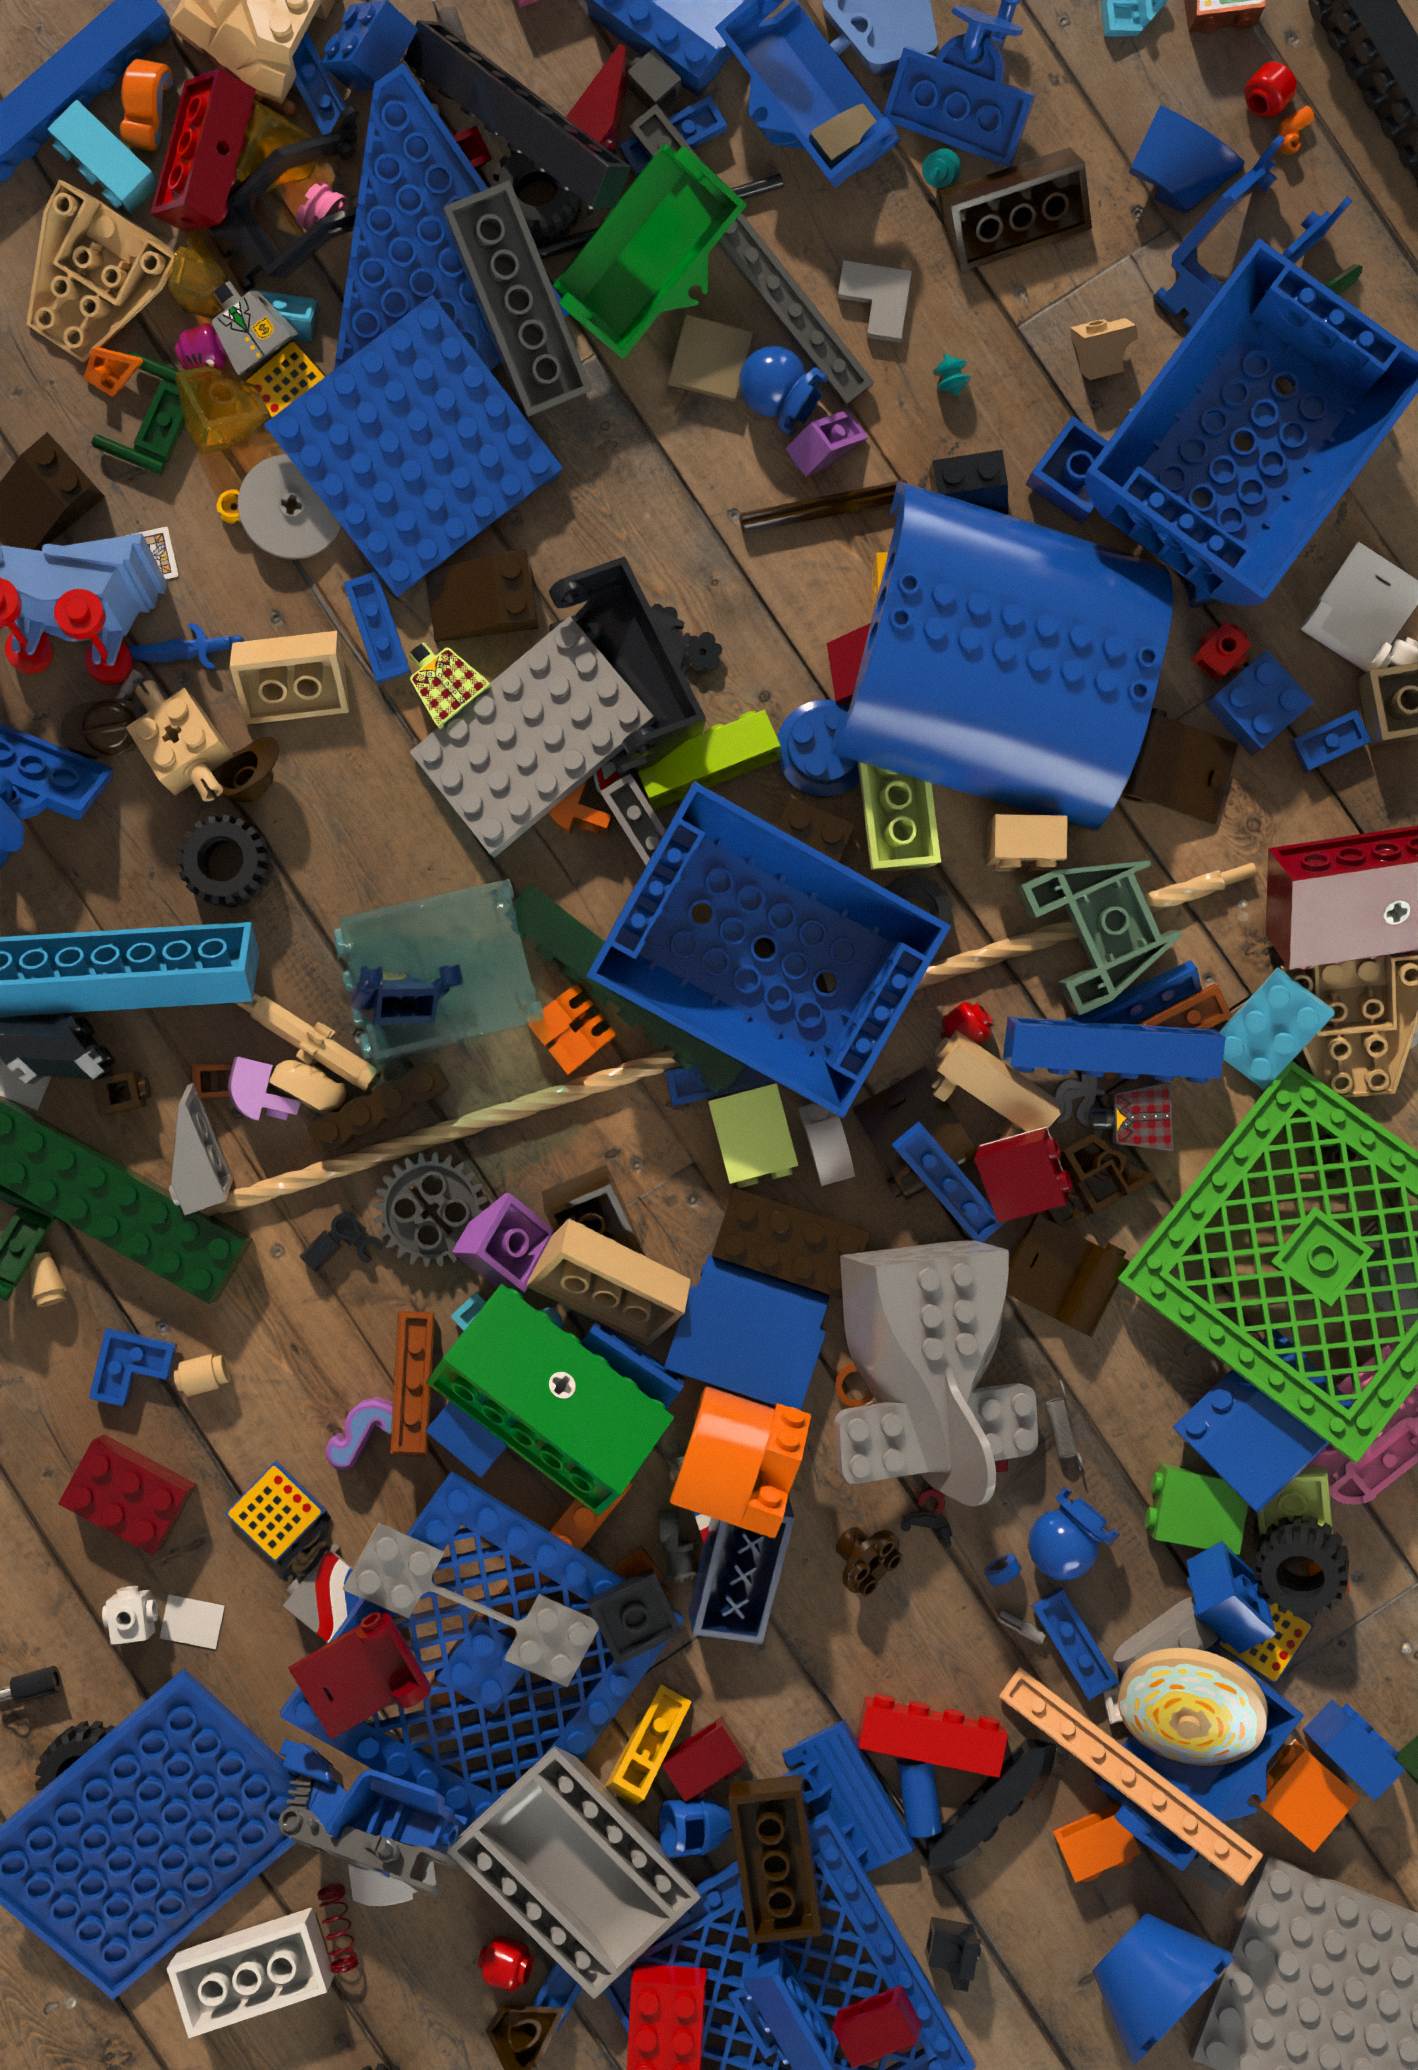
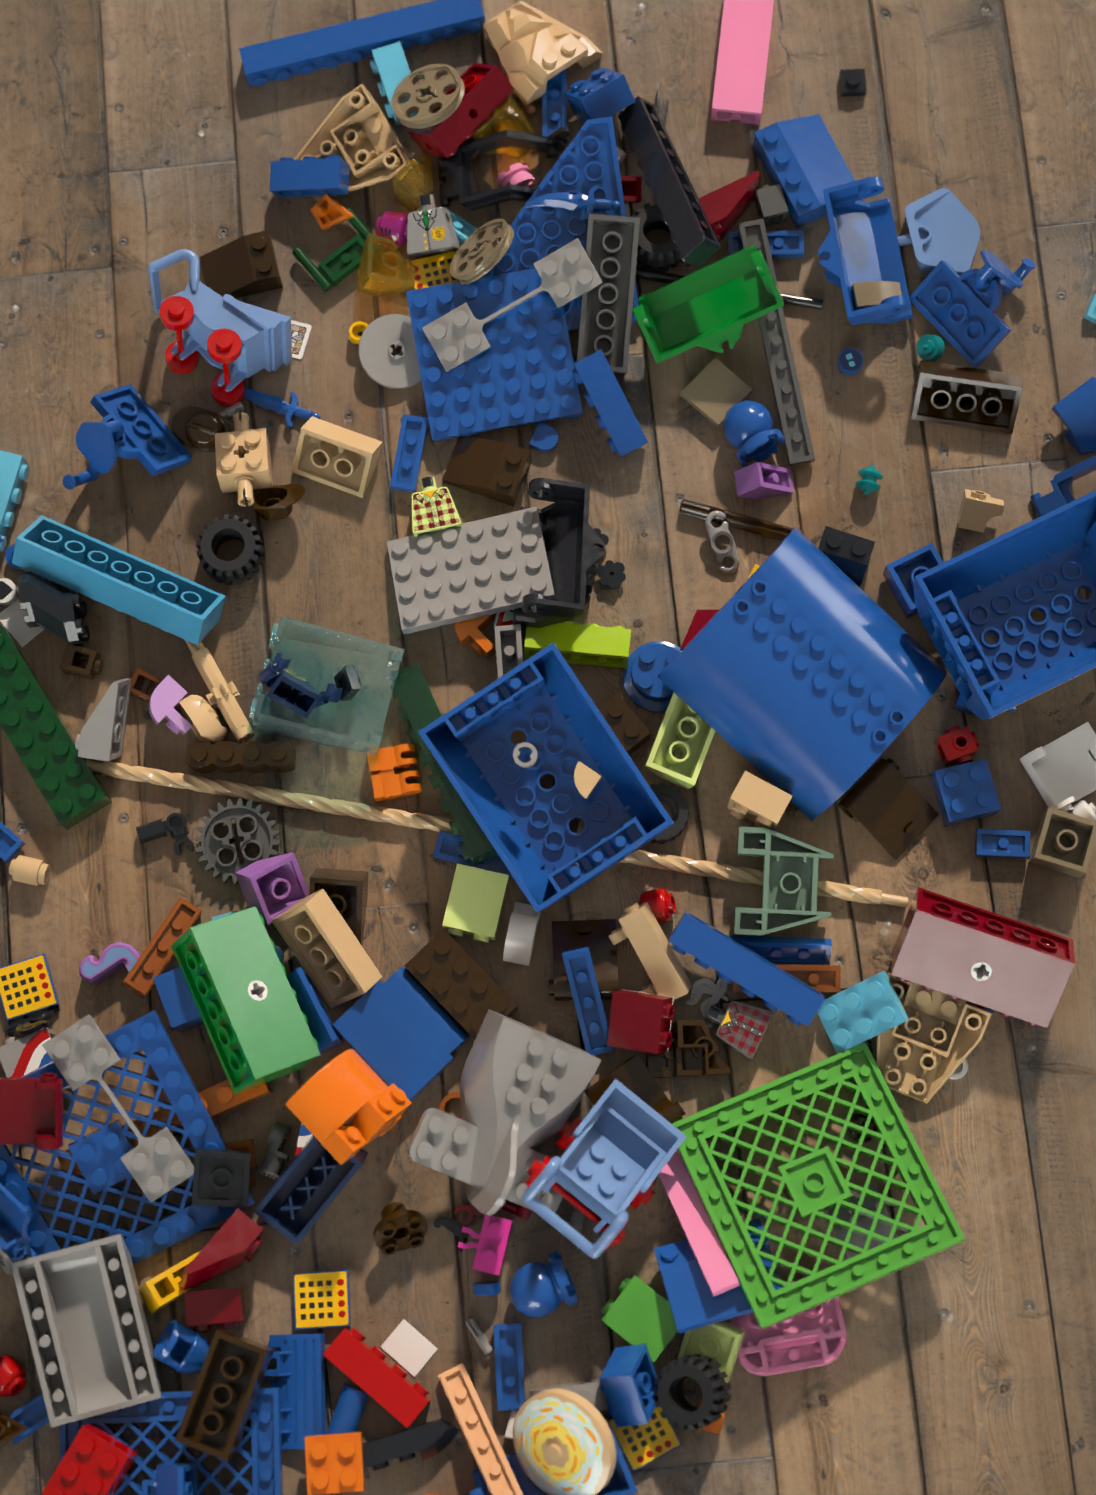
camera: 35 degrees right, 10 degrees down
(60, 336) = (309, 177): none -> blue brick
(143, 103) = (446, 51): orange animal -> none
(153, 153) = (428, 103): none -> dark tan wedge
(331, 324) = (481, 251): none -> dark tan wedge
(415, 199) = (573, 202): none -> blue piece
(454, 304) = (564, 276): none -> light grey hinge
(460, 950) = (349, 681): none -> black plate
(531, 524) = (544, 438): none -> blue tile
(592, 438) = (610, 403): none -> blue brick
(688, 1681) = (226, 1251): none -> dark red slope
(721, 941) = (516, 753): none -> light grey bush
(799, 538) = (713, 533): none -> light grey piece
(820, 929) = (585, 779): none -> tan tile
(820, 1682) = (321, 1299): none -> yellow tile
(852, 236) = (850, 361): none -> tile
(883, 289) = (853, 407): light grey tile -> none
(939, 1862) = (334, 1463): none -> orange plate
(947, 1681) = (409, 1347): none -> white sticker
(985, 1529) = (491, 1244): none -> dark pink brick
(1076, 1372) = (606, 1166): none -> medium blue piece
(1202, 1370) = (697, 1226): none -> bright pink tile

